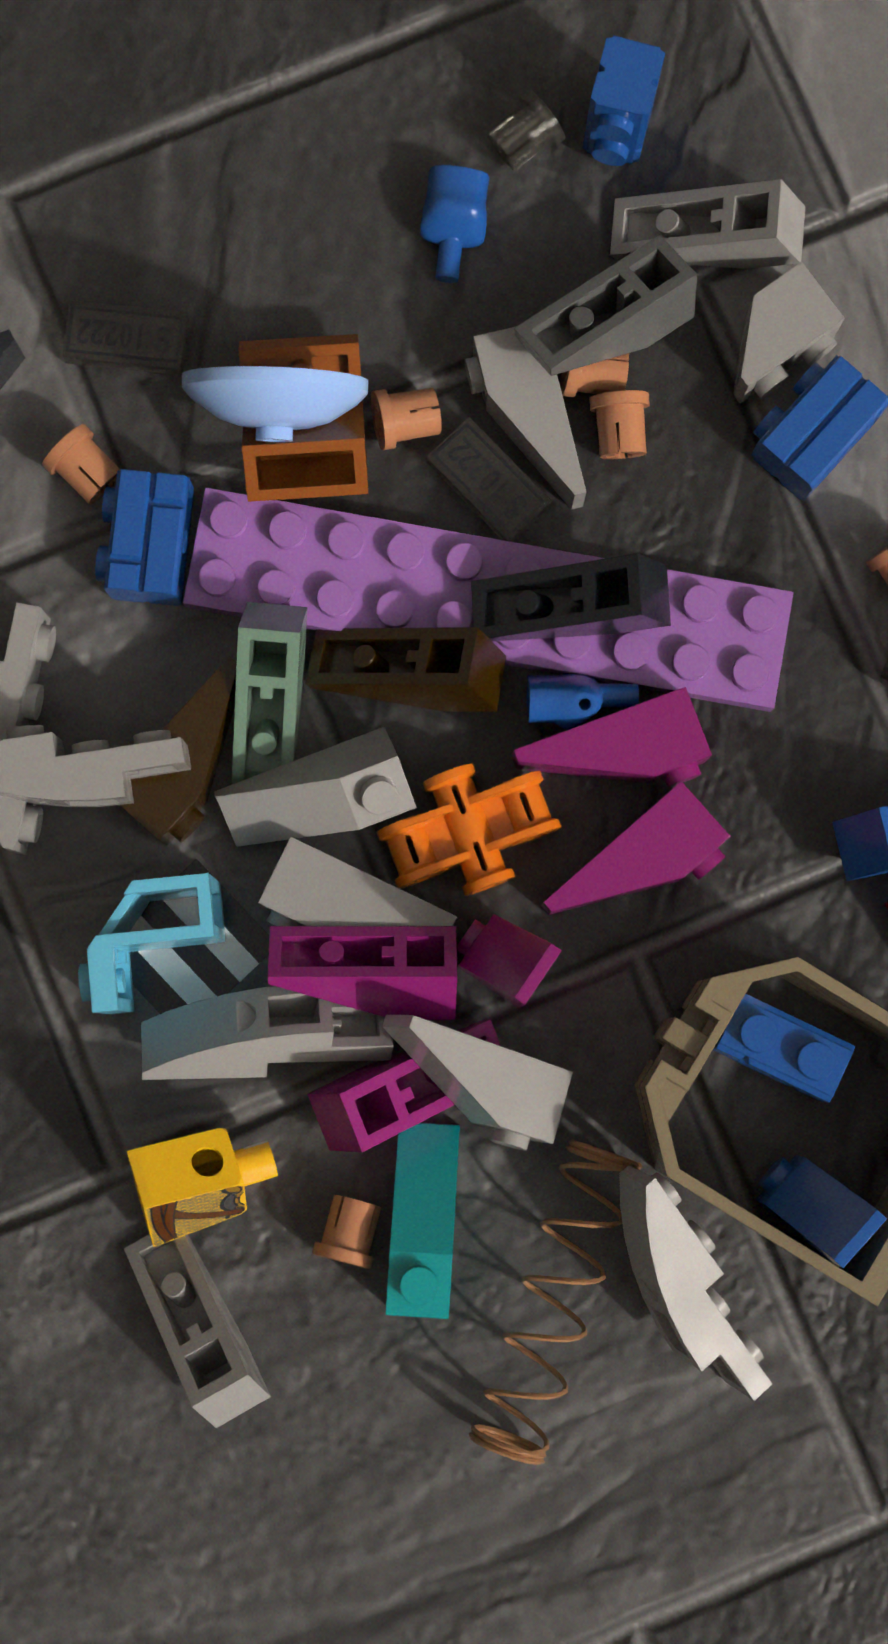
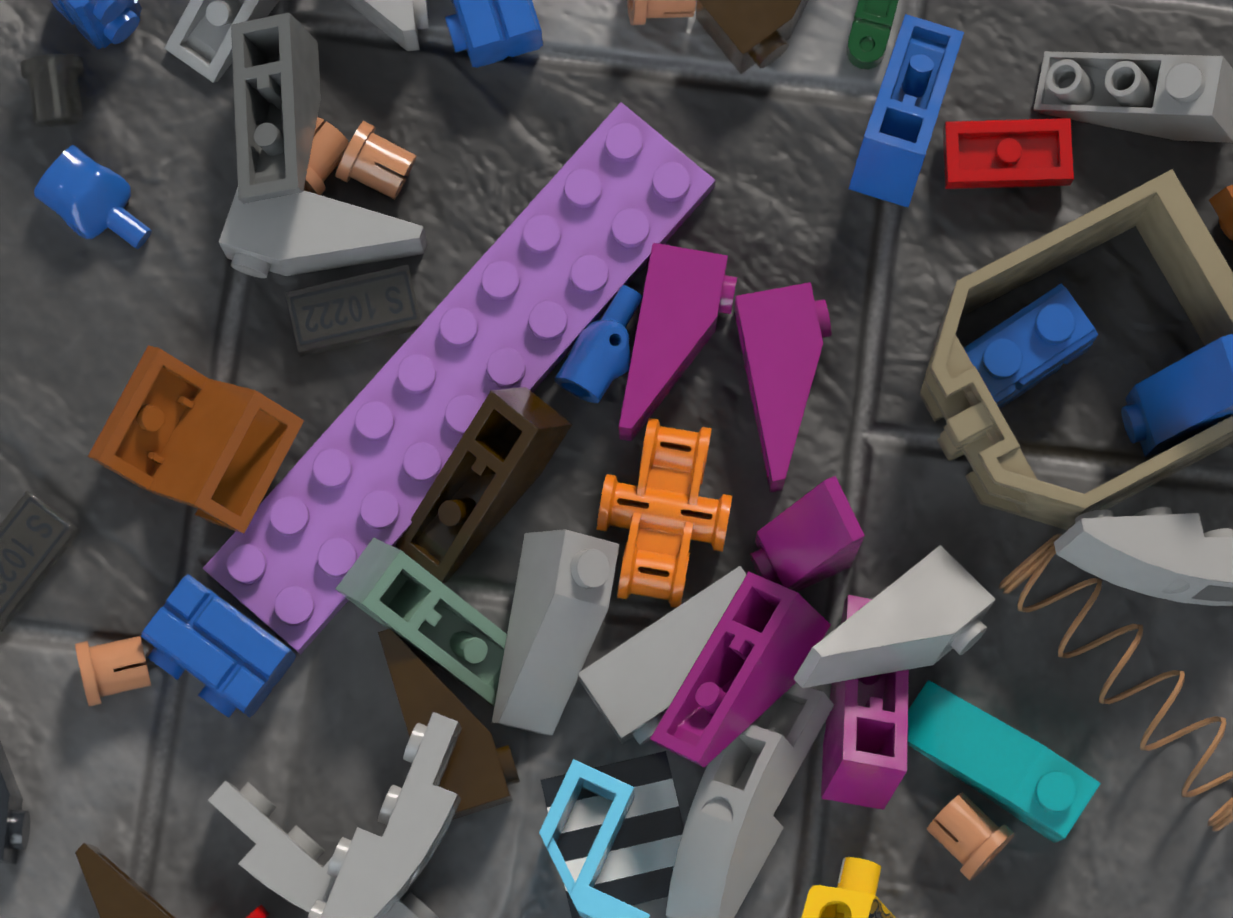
camera: 55 degrees left, 5 degrees down
(274, 397) = (174, 448): light blue dish -> none
(404, 416) = (248, 350): nougat bush -> none
(574, 600) = (514, 295): black slope -> none

